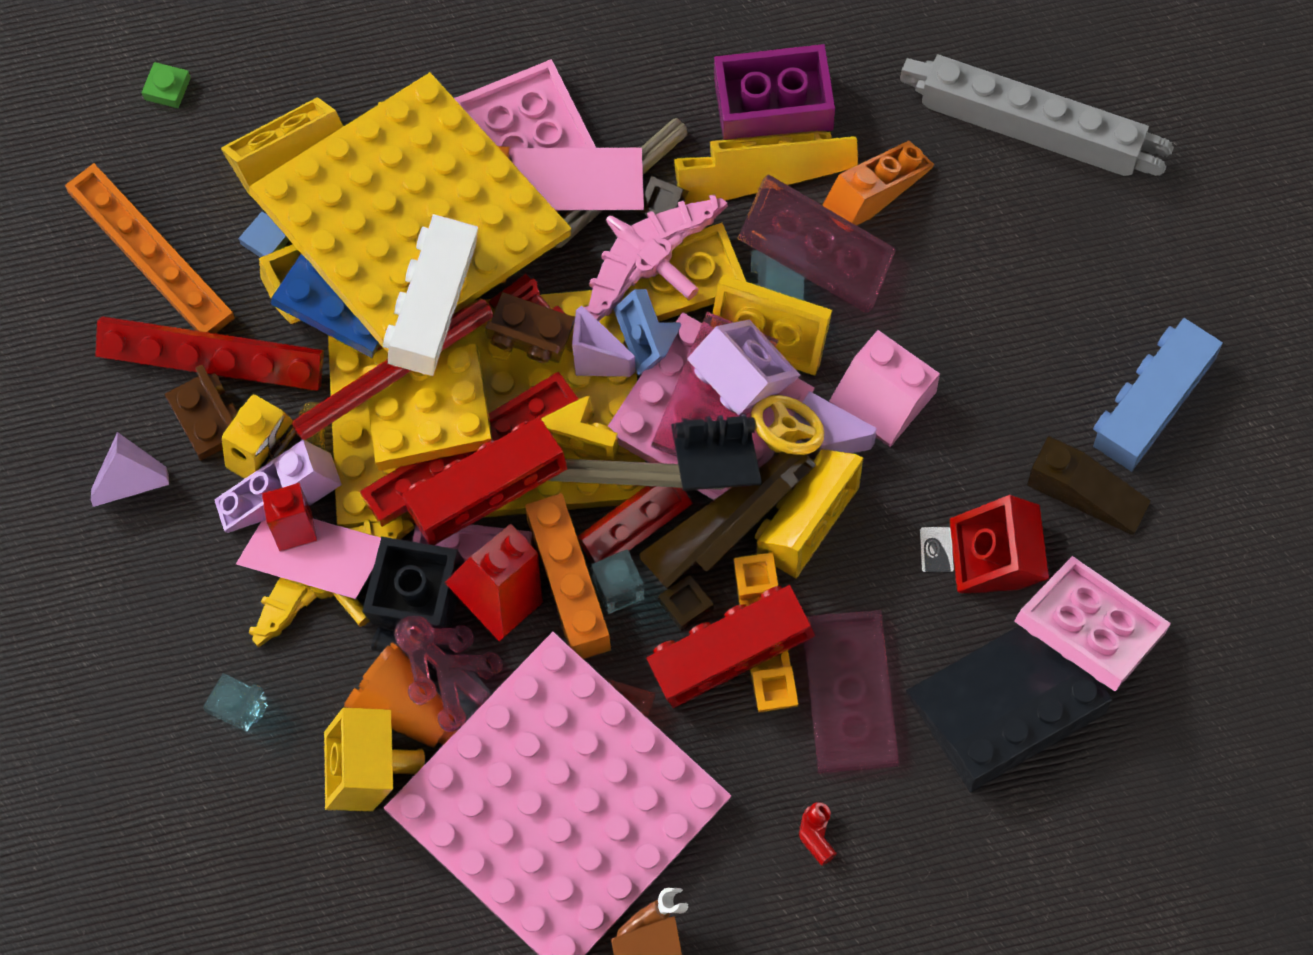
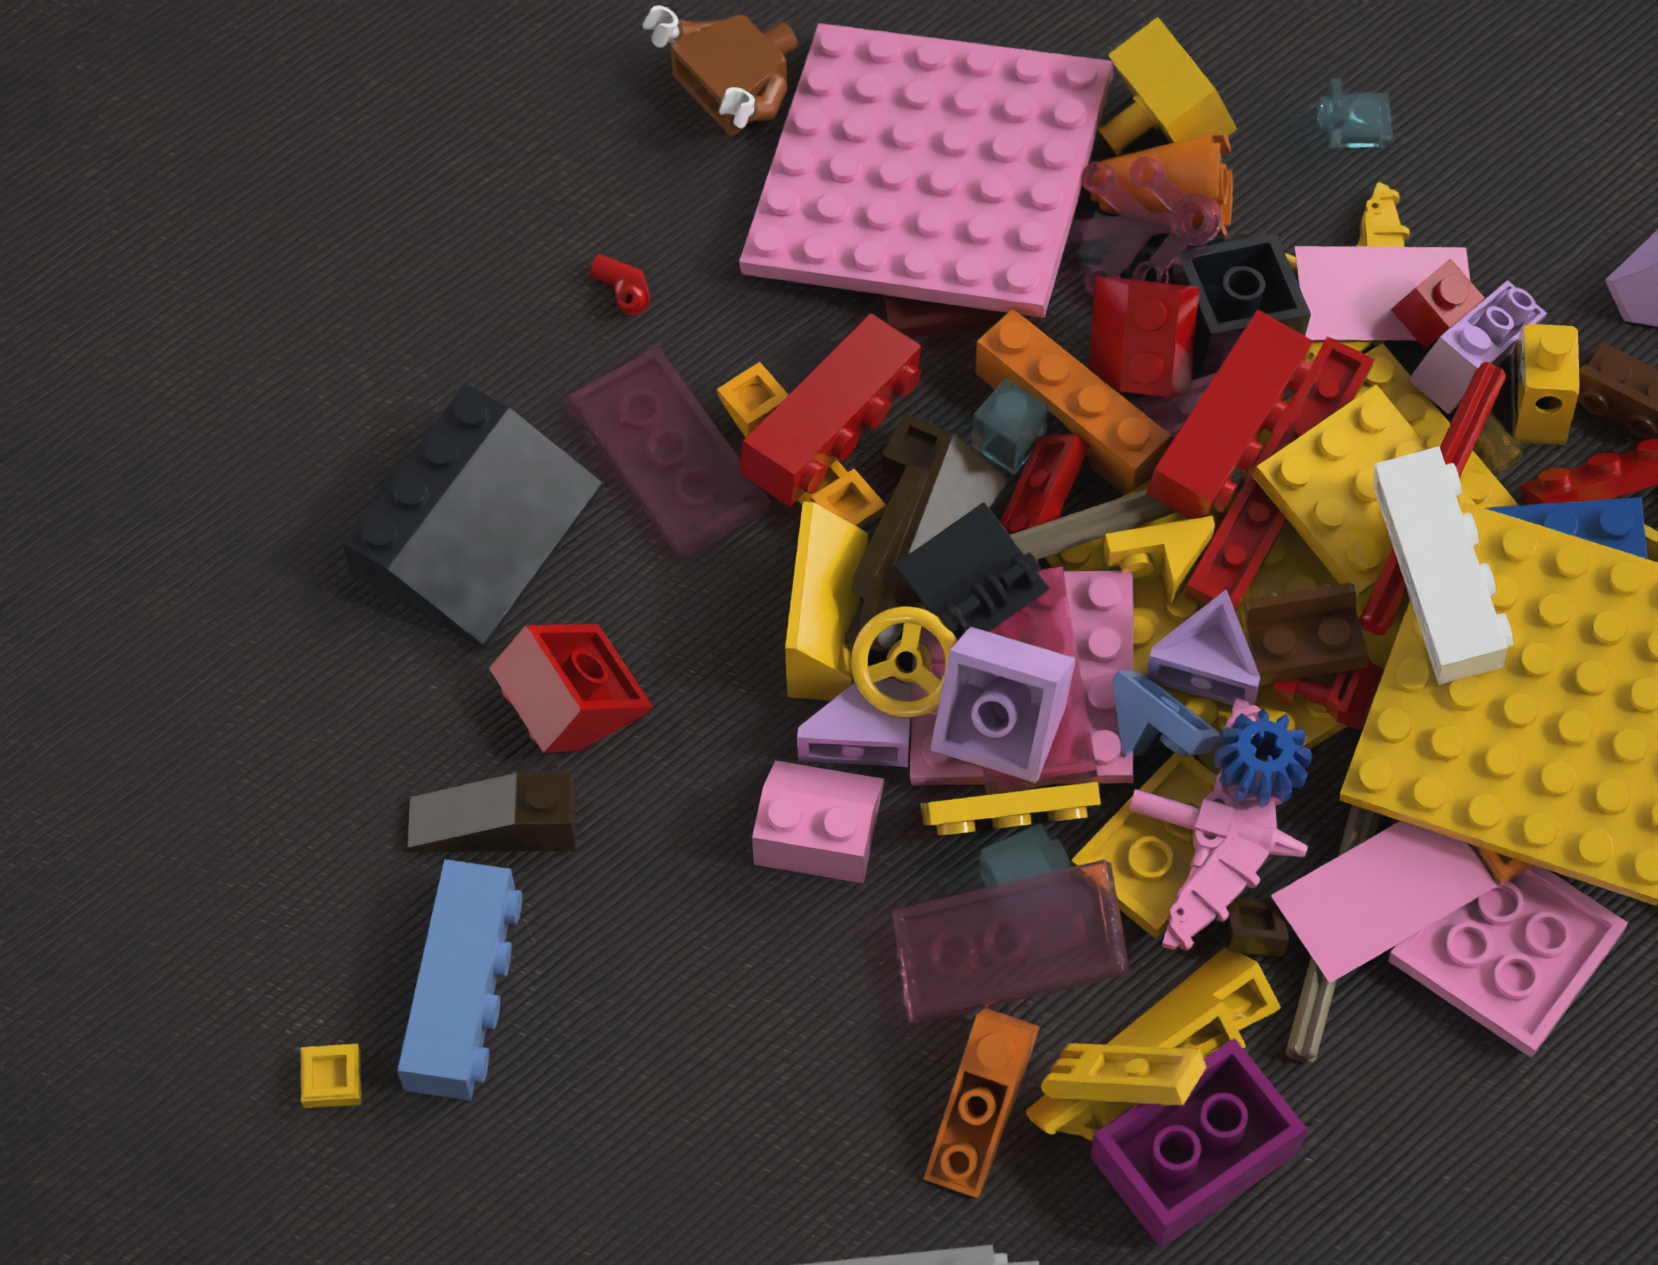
camera: 150 degrees right, 5 degrees down
(592, 258) = (1263, 737): none -> blue gear
(798, 127) = (1124, 1074): none -> yellow hinge
(936, 549) = (651, 666): clear sticker -> none
(1092, 623) = (407, 628): bright pink plate -> none
(1258, 382) = (330, 1076): none -> yellow tile

